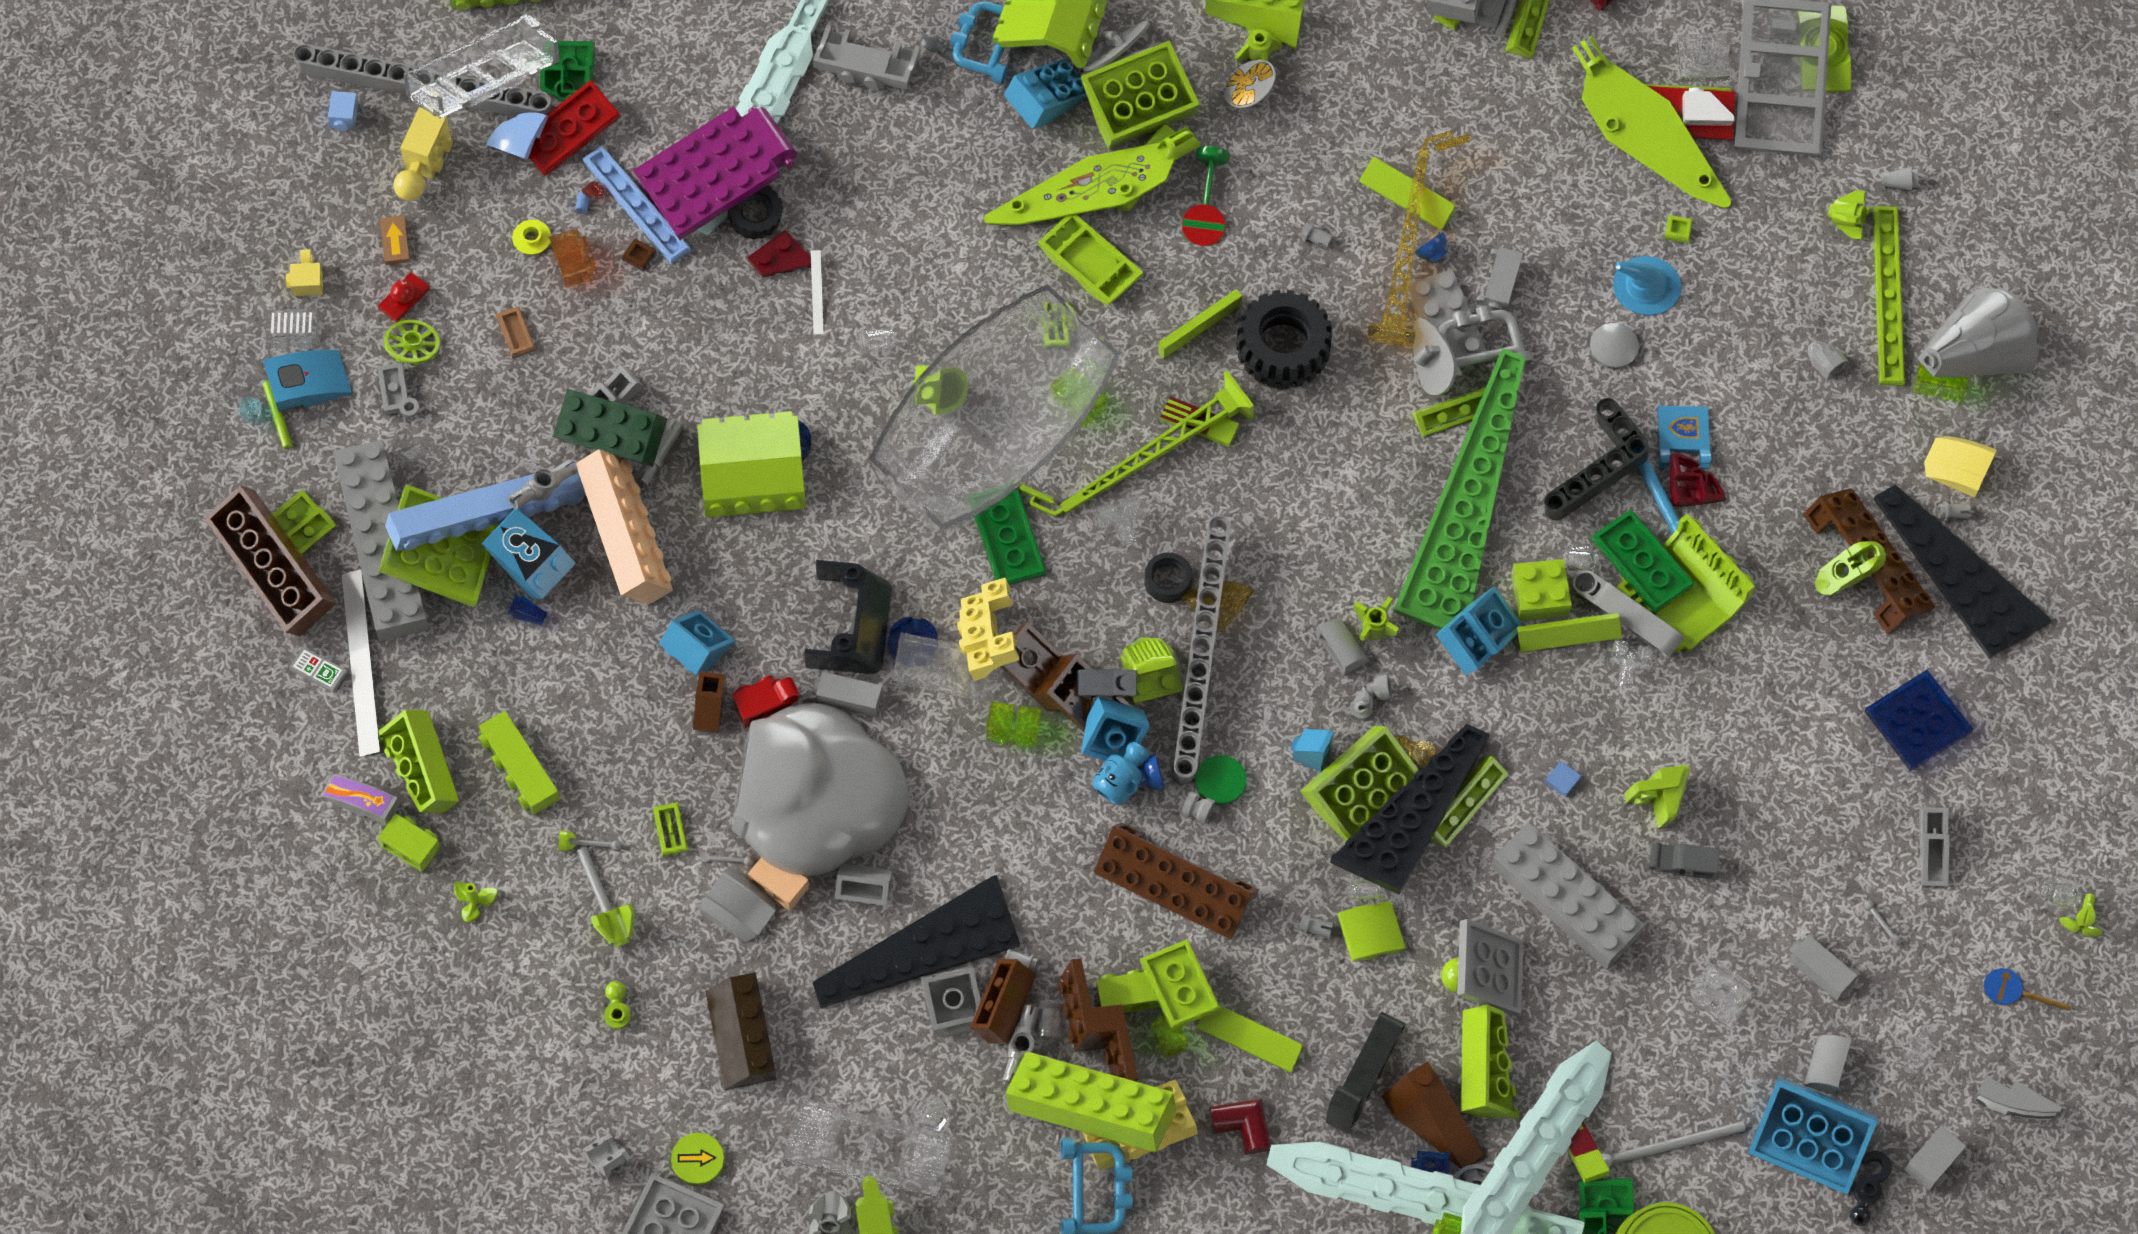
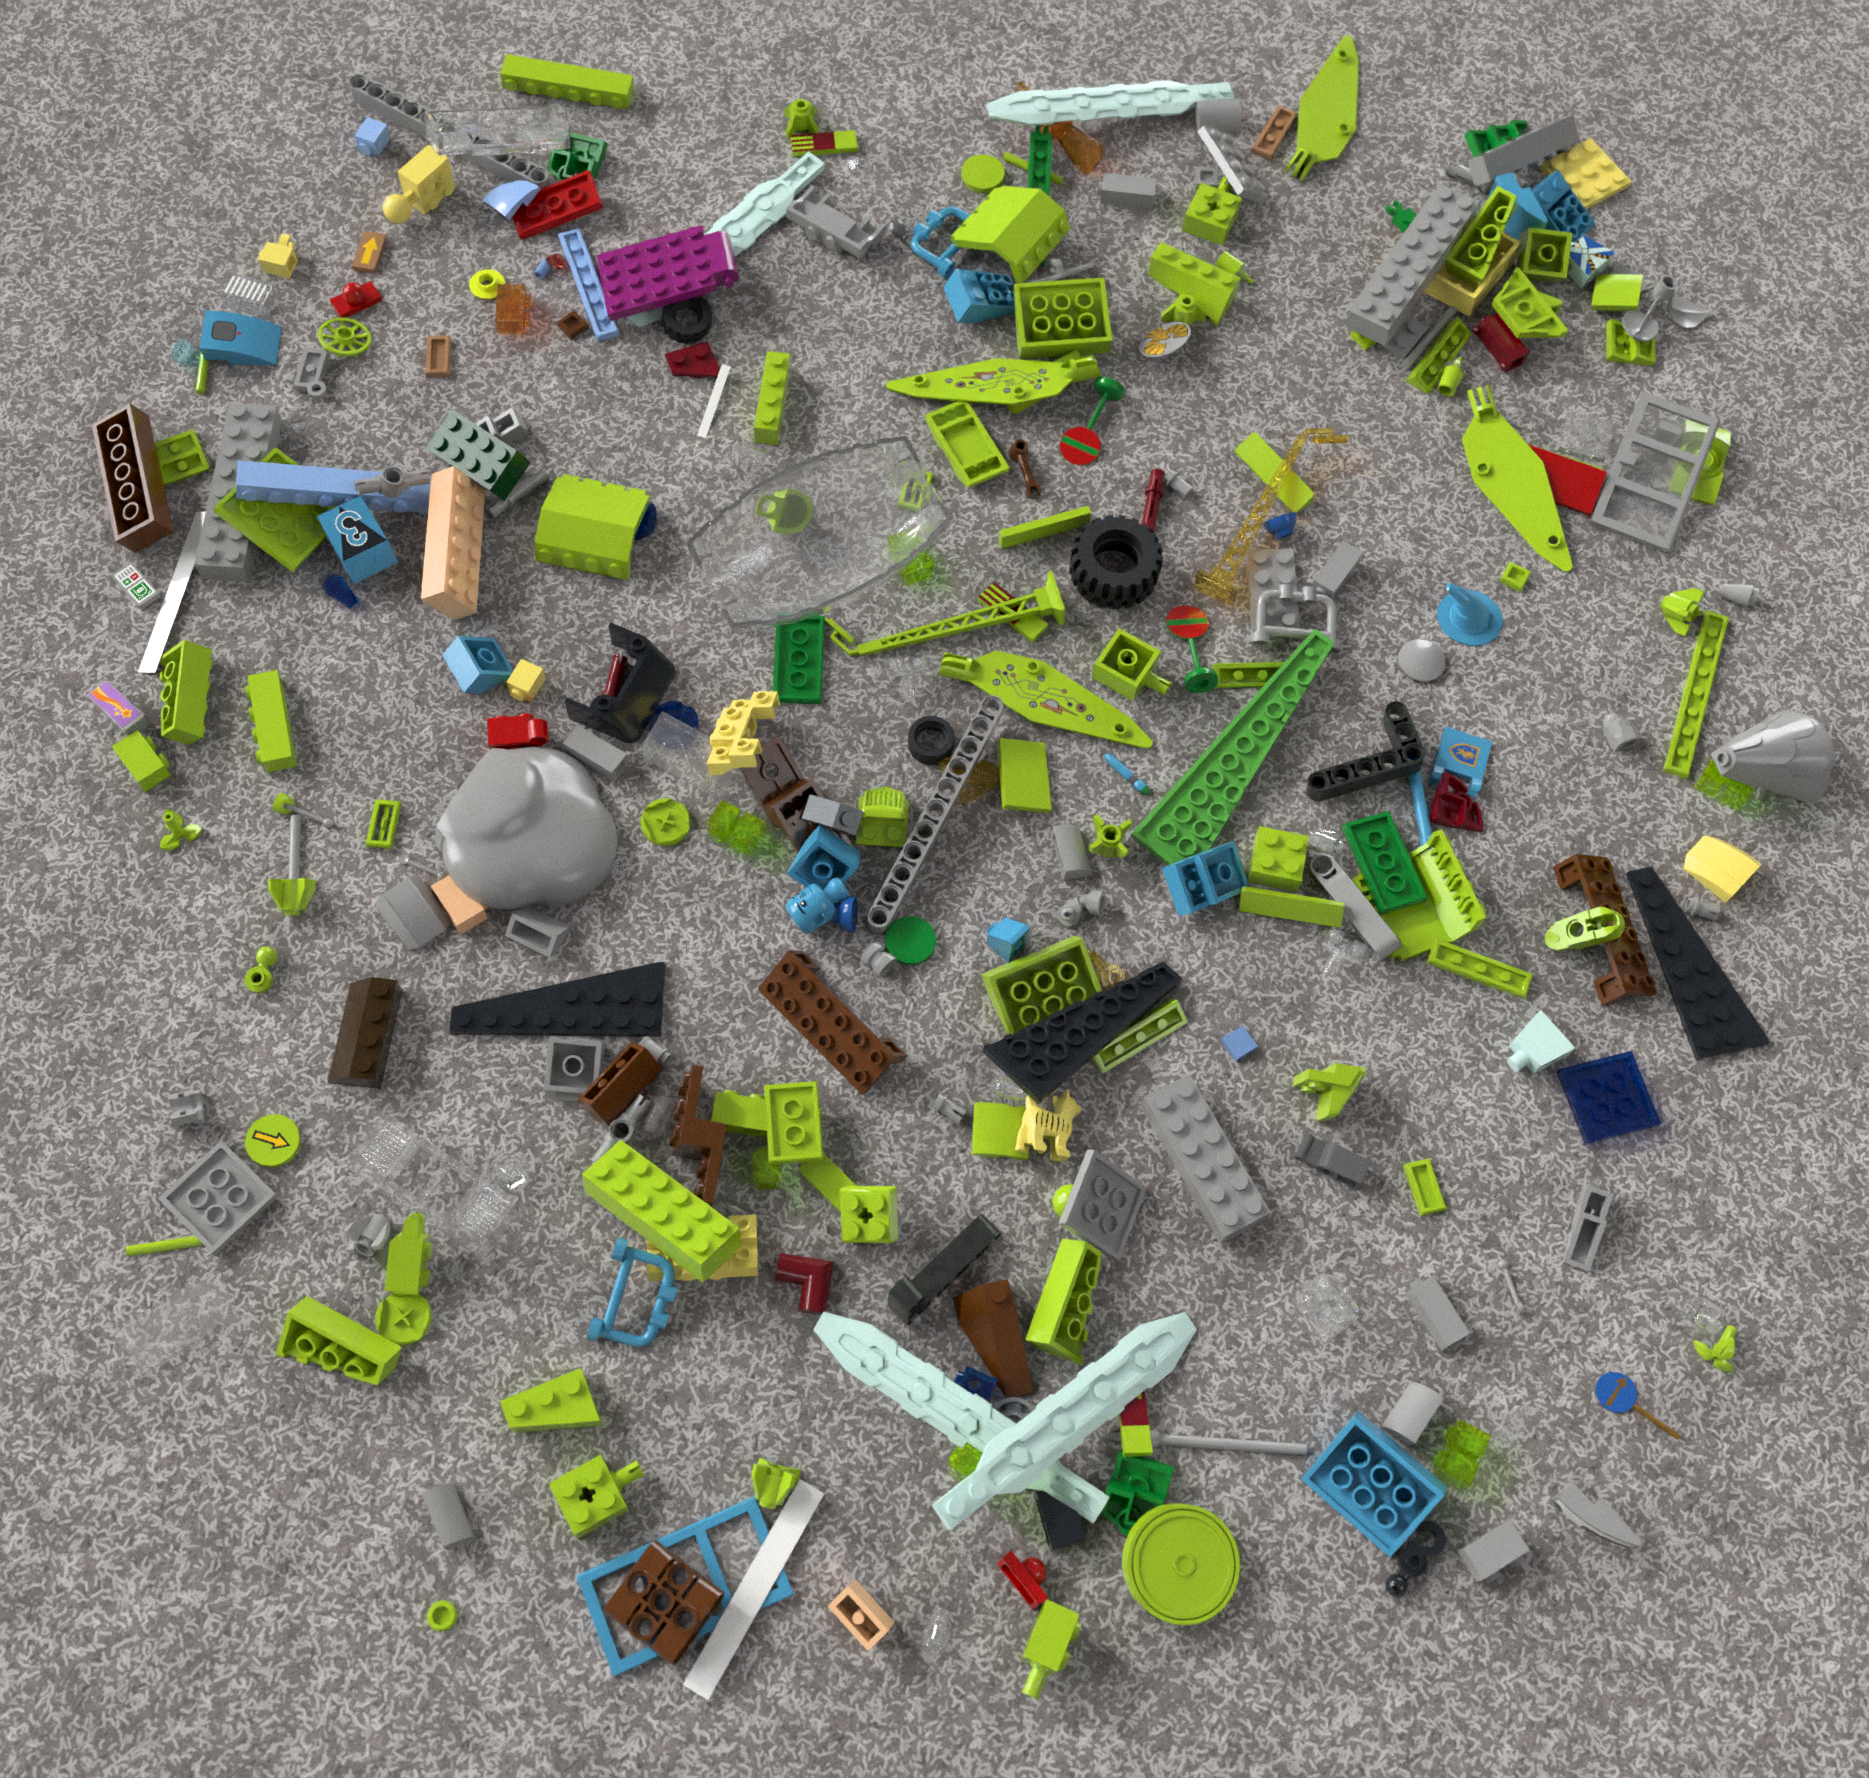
camera: 15 degrees right, 0 degrees up
(709, 701) = (465, 719): reddish brown slope -> none
(750, 644) = (525, 681): none -> light yellow brick
(835, 612) = (615, 675): none -> dark red pin
(877, 271) = (772, 398): none -> lime brick
(942, 740) = (665, 822): none -> lime tile
(1145, 256) = (1020, 457): none -> reddish brown brick
(1261, 497) = (1044, 695): none -> lime wing
(1270, 584) = (1023, 775): none -> lime tile
(1285, 1029) = (877, 1200): none -> lime brick
(1295, 253) = (1156, 480): none -> dark red pin
(1334, 442) = (1129, 666): none -> lime brick
(1371, 552) = (1138, 784): none -> dark azure piece
(1377, 379) = (1190, 624): none -> piece
(1410, 912) = (1043, 1124): none -> light yellow animal
(1433, 358) = (1247, 620): light grey shield -> none
(1550, 33) = (1452, 375): none -> lime piece
(1704, 108) = (1573, 478): white slope -> none
(1763, 635) = (1479, 968): none -> lime tile
(1776, 857) = (1424, 1187): none -> lime tile
(1840, 691) = (1538, 1045): none -> light aqua torso
(1882, 1087) = (1459, 1458): none -> clear neon green piece

